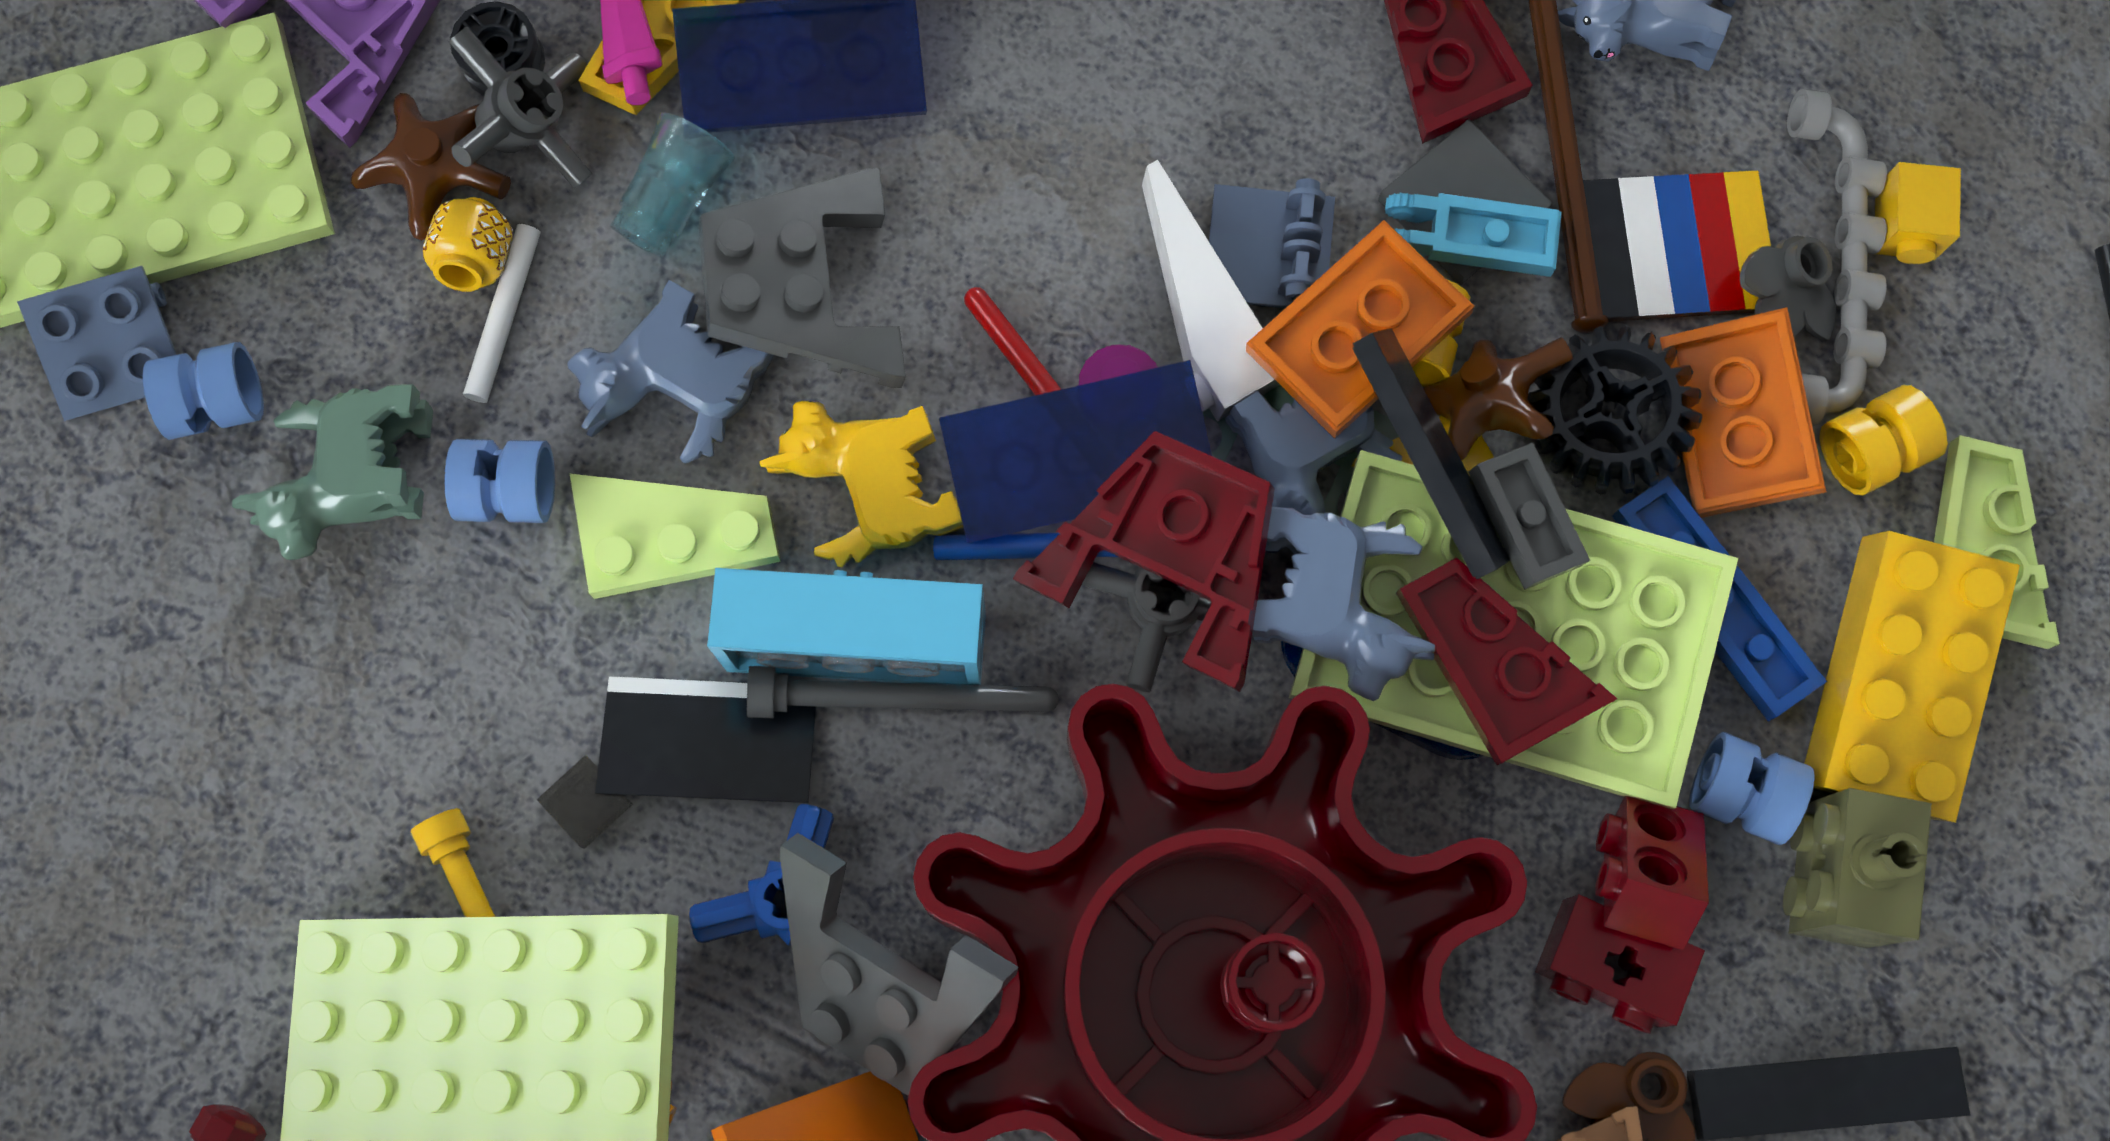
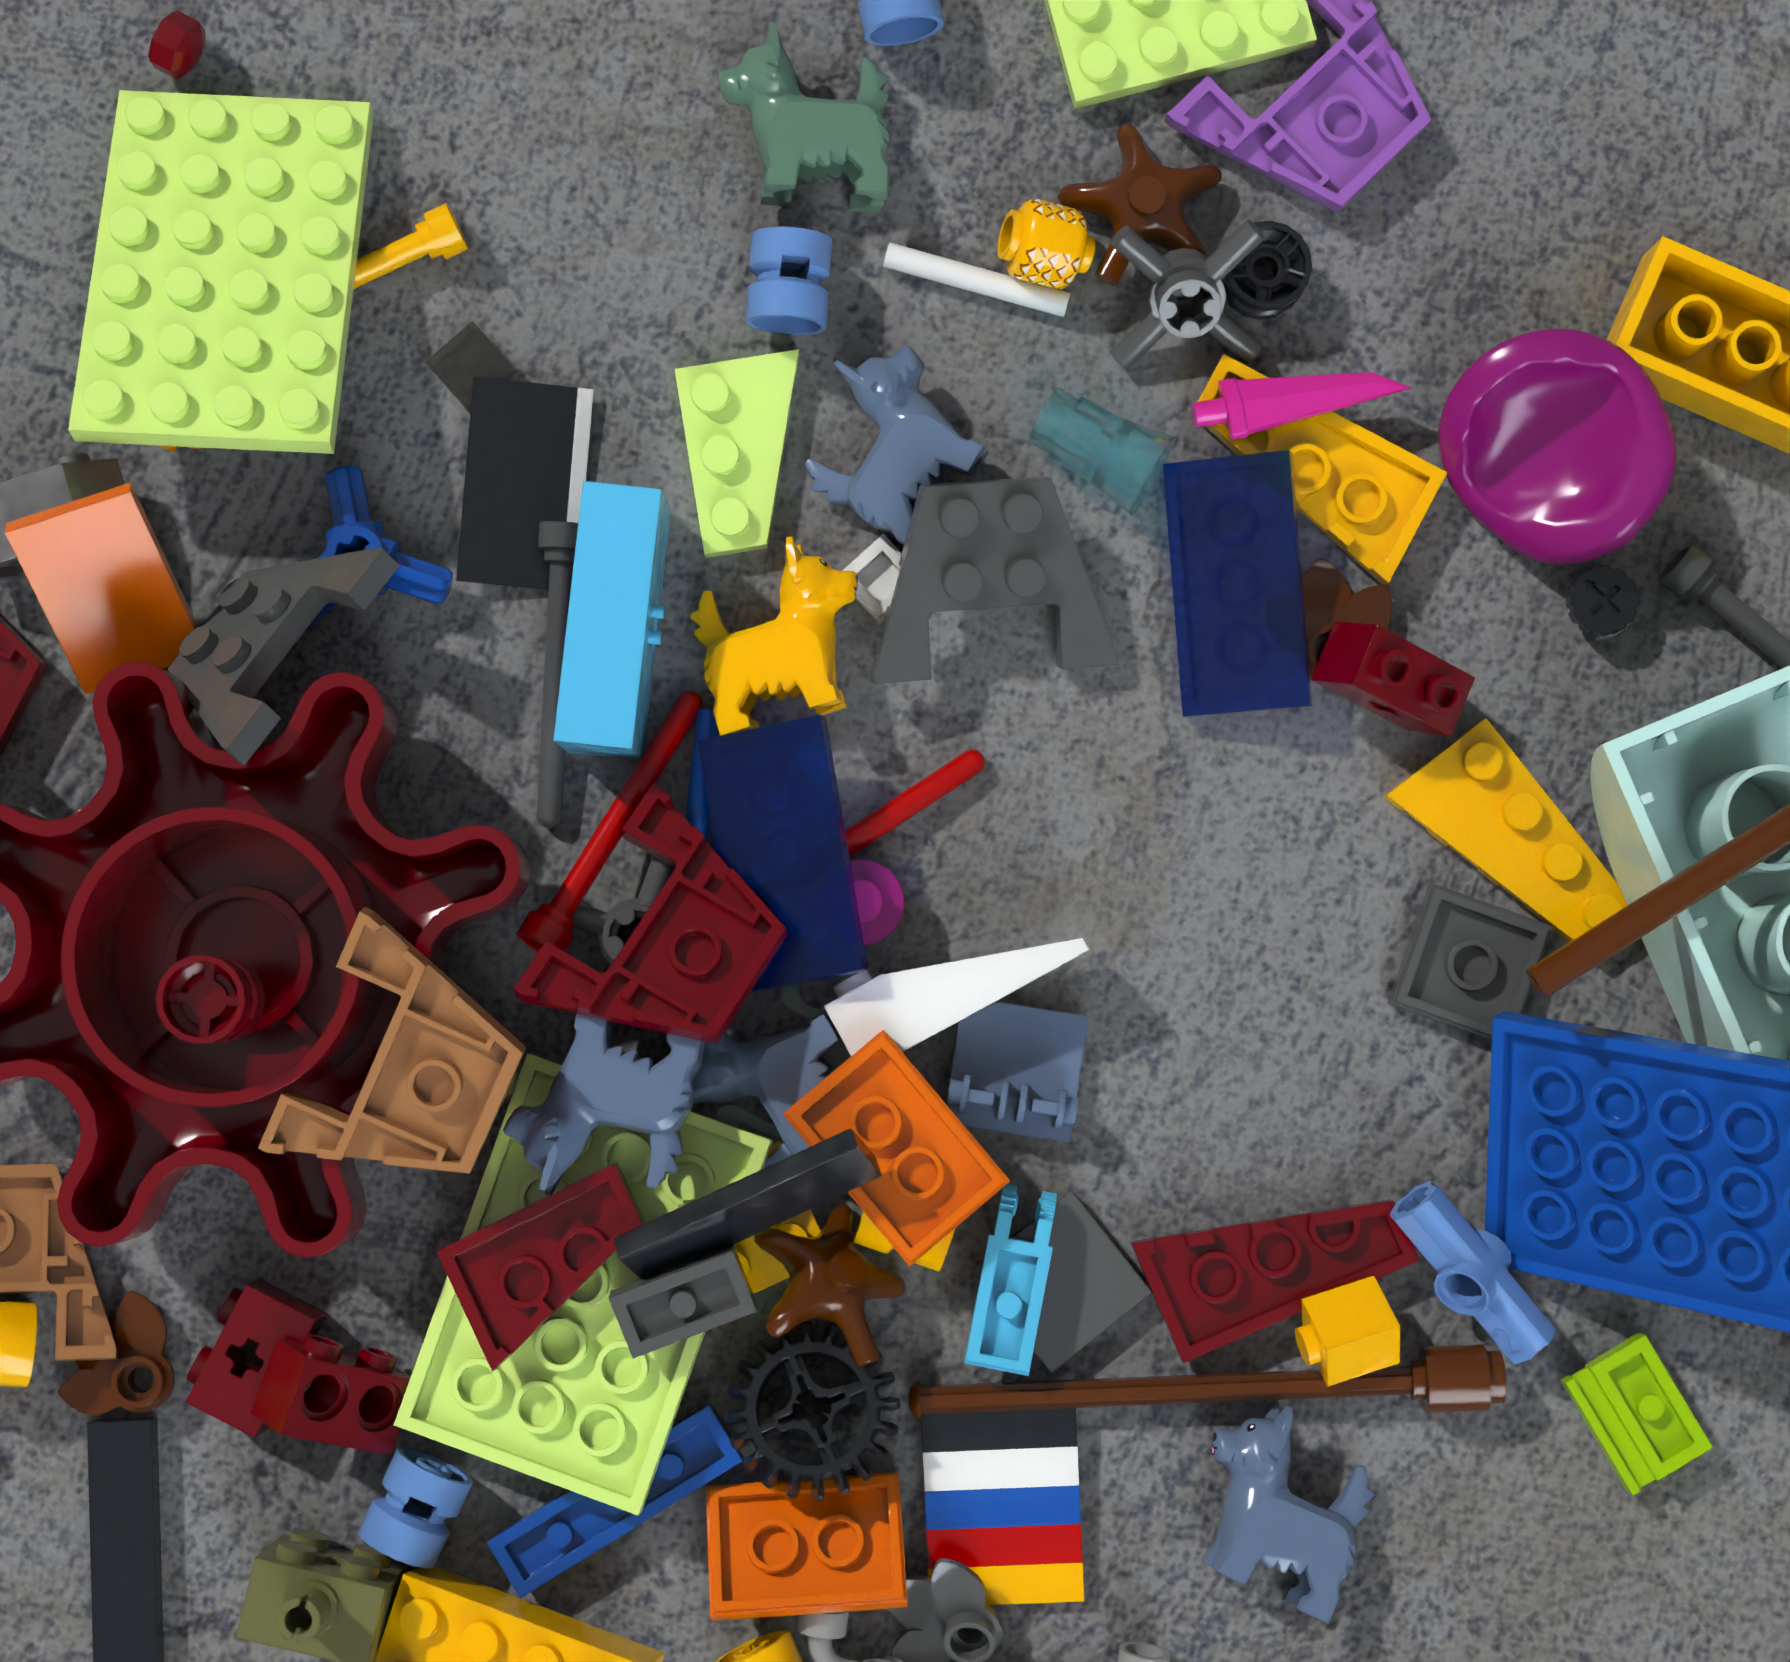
camera: 90 degrees right, 10 degrees up
(795, 381) = (877, 576): none -> white tile
(1160, 671) = (554, 921): none -> red piece
(1341, 753) = (431, 1079): none -> medium nougat wing

